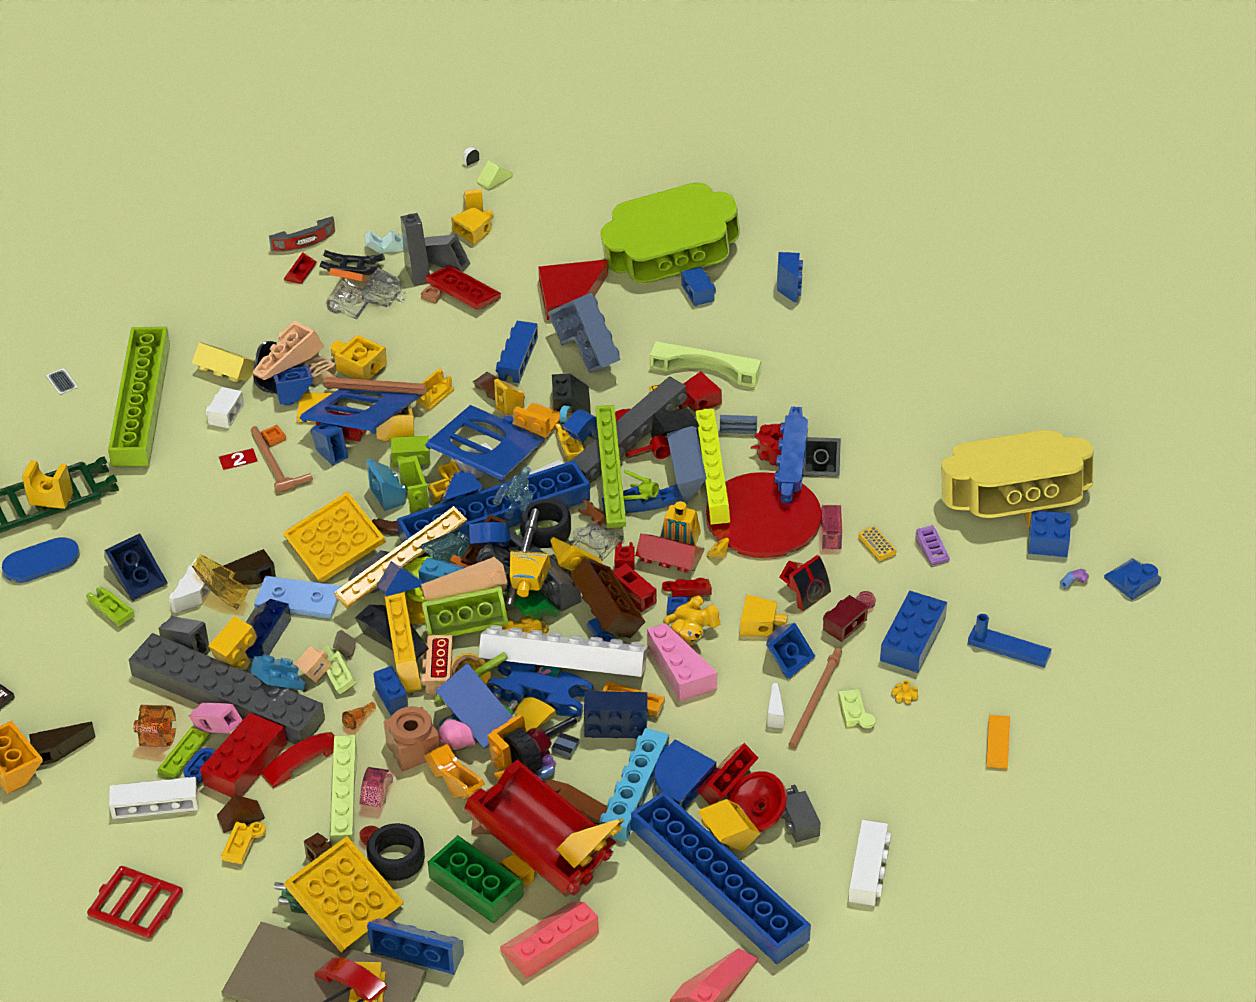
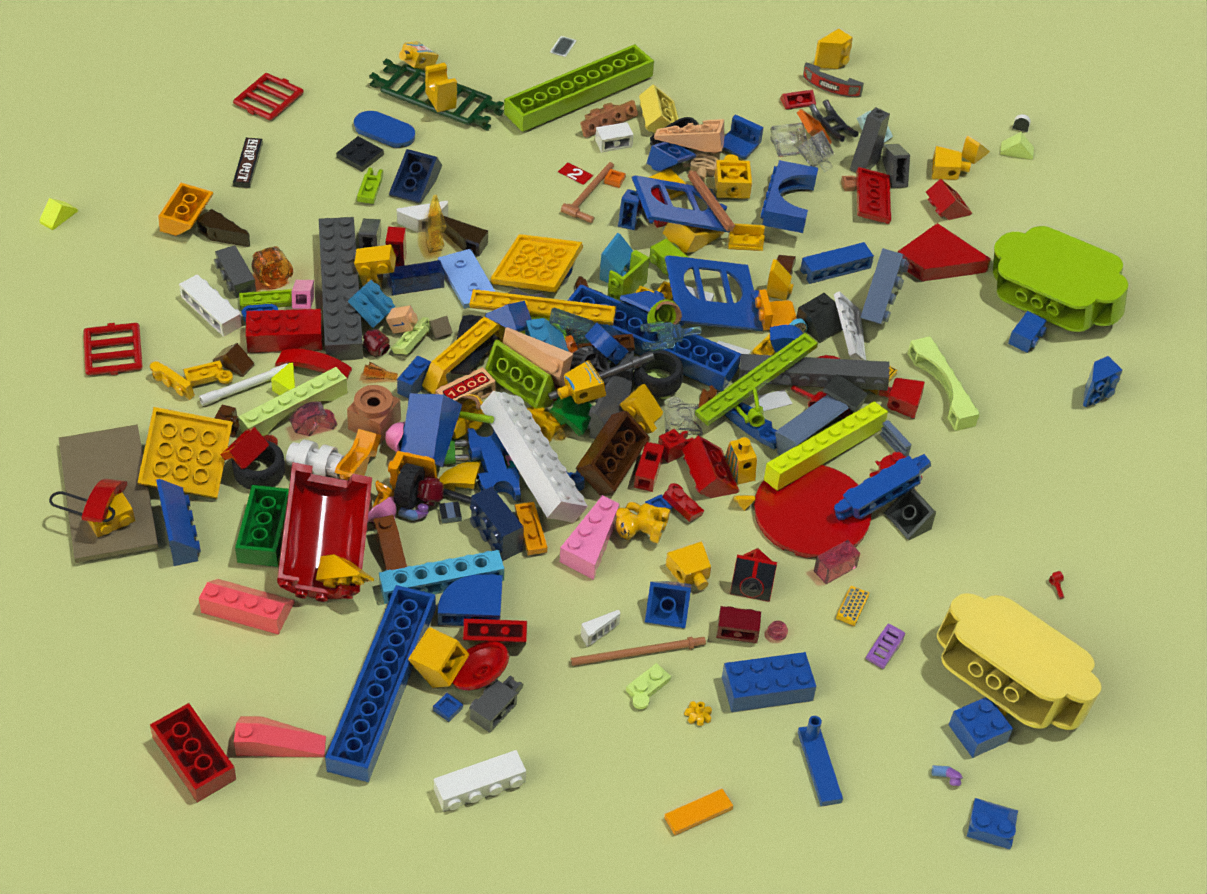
camera: 50 degrees right, 5 degrees up
(55, 593) = (360, 153): none -> black plate
(126, 758) = (234, 271): none -> dark grey brick
(192, 399) = (608, 115): none -> nougat bracket
(216, 617) = (397, 238): none -> red brick
(225, 870) = (172, 379): none -> yellow hinge
(273, 848) = (216, 395): none -> white piece
(274, 210) = (833, 50): none -> yellow slope
(312, 786) = (283, 380): none -> neon yellow slope
(317, 320) = (742, 137): none -> blue bracket
(325, 694) = (376, 342): none -> dark red head
(379, 844) = (246, 448): none -> red panel
(433, 351) = (776, 210): none -> blue arch
(439, 800) = (323, 459): none -> white piece
(495, 476) = (665, 312): none -> lime piece
(514, 248) = (947, 201): none -> red slope
(597, 382) = (851, 326): none -> white wing
(627, 479) = (774, 400): none -> white sticker
(773, 849) = (447, 707): none -> blue tile
(947, 416) = (1055, 580): none -> red hand

